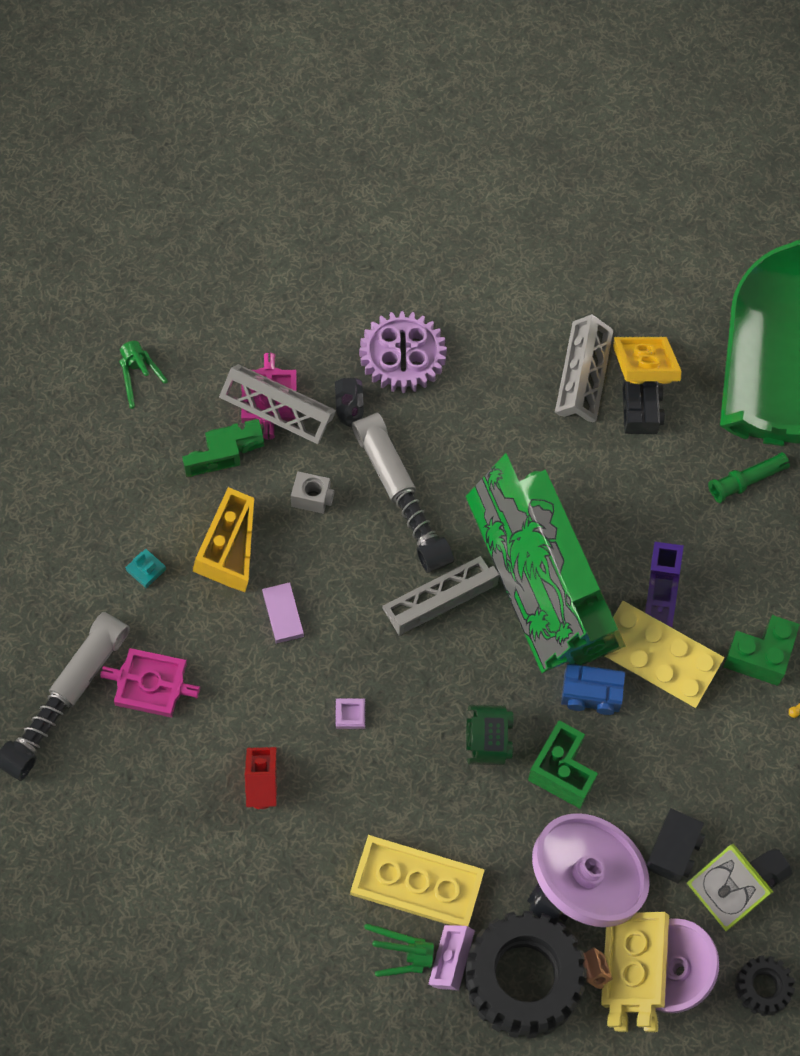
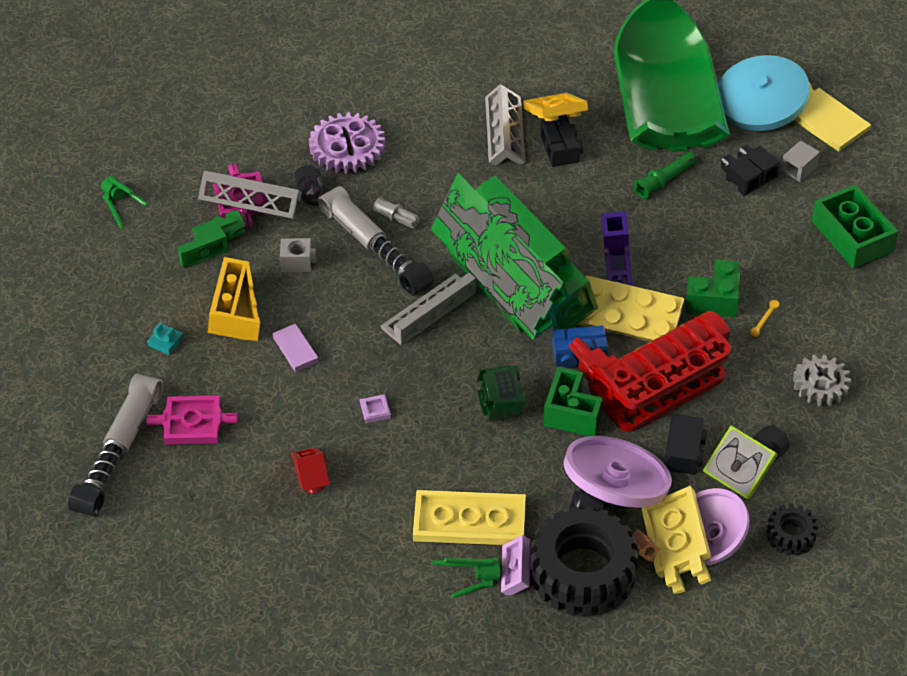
camera: 10 degrees left, 15 degrees down
(434, 459) = (395, 213): none -> light grey axle
(669, 744) = (657, 370): none -> red piece

